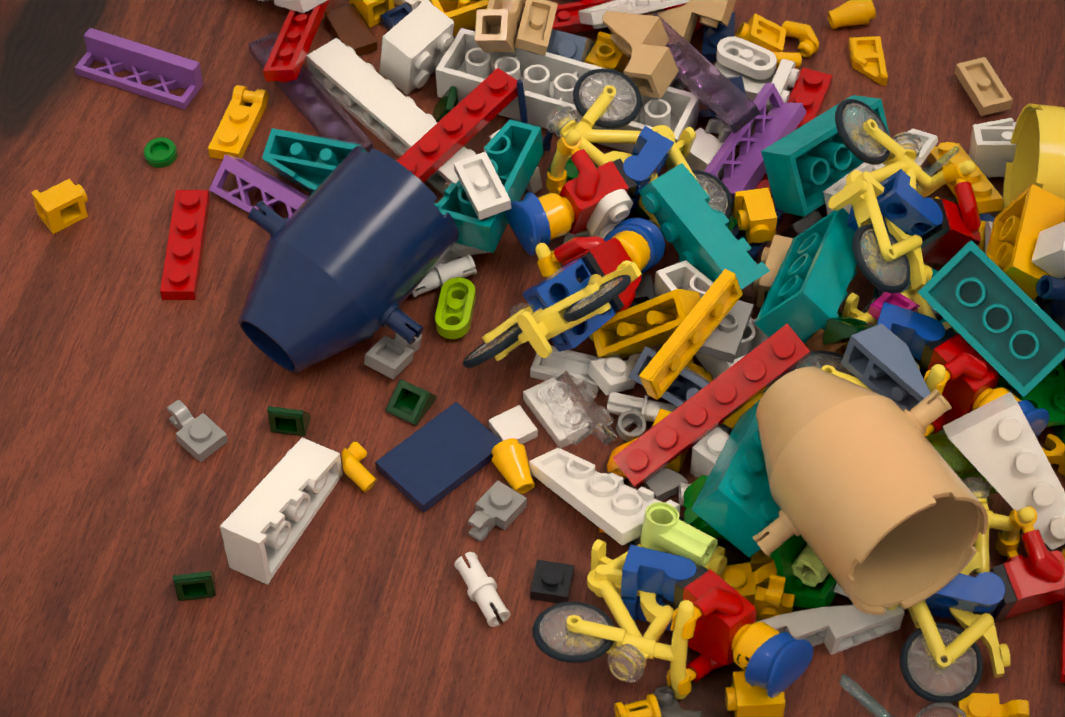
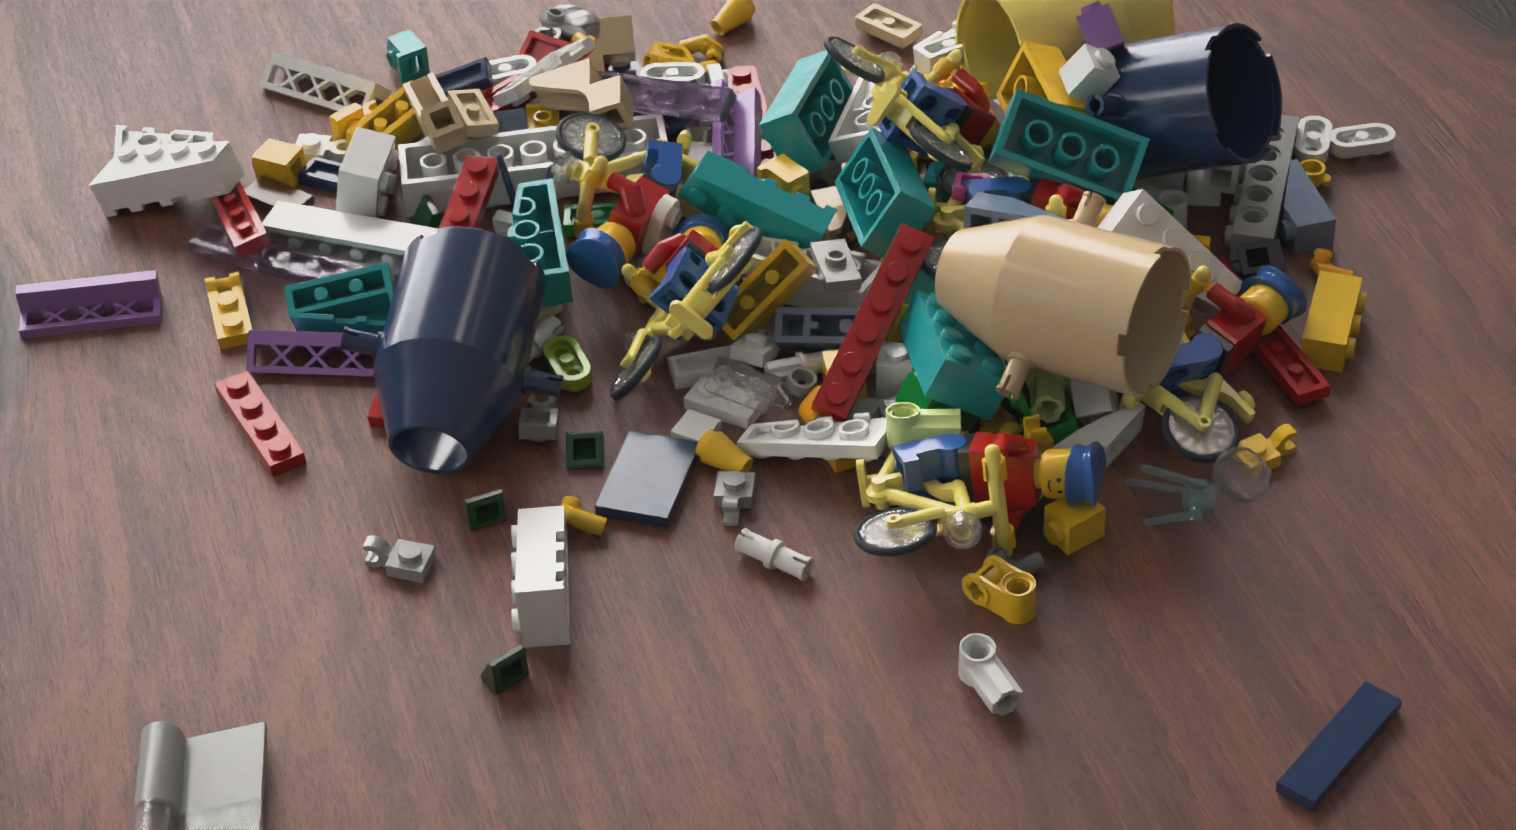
camera: 30 degrees left, 10 degrees down
(61, 205) = (106, 441): yellow brick -> none
(160, 152) = (168, 363): green tile -> none
(482, 185) = (541, 238): white plate -> none
(552, 582) = (828, 524): black plate -> none
(691, 334) = (817, 274): yellow tile -> none
(841, 328) = (948, 213): dark green slope -> none
(868, 58) = (772, 43): yellow tile -> none

